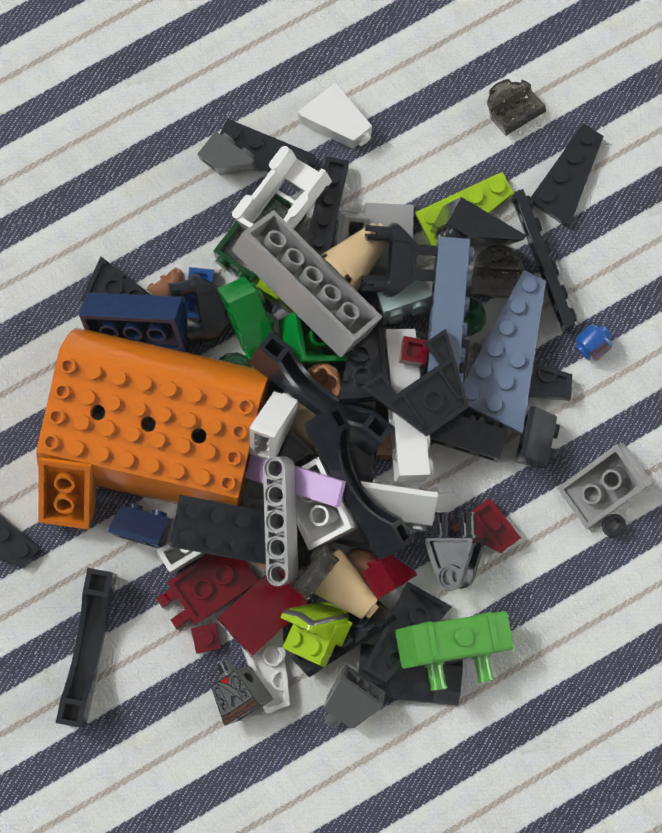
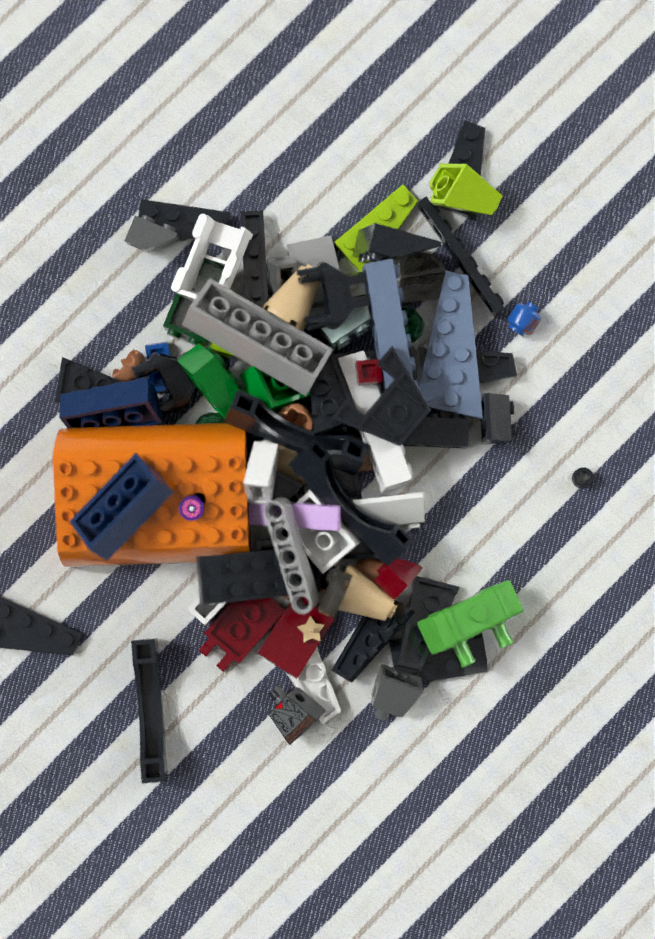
camera: 20 degrees left, 5 degrees up
(66, 493) = (92, 581): orange slope -> none
(114, 421) = (121, 507): none -> dark blue slope
(141, 526) = (167, 590): dark blue slope -> none
(188, 441) = (191, 507): none -> tile
(206, 638) = (252, 672): dark red plate -> none
(277, 608) = (310, 630): none -> tan piece
(316, 630) = (347, 641): lime piece -> none
(336, 118) = (240, 173): white slope -> none
(457, 554) = (451, 540): piece -> none
(492, 526) = (473, 508): dark red wing -> none
(513, 105) = (397, 120): clear smoke slope -> none
(564, 191) = (463, 190): none -> lime slope
(605, 485) = (566, 444): light grey slope -> none

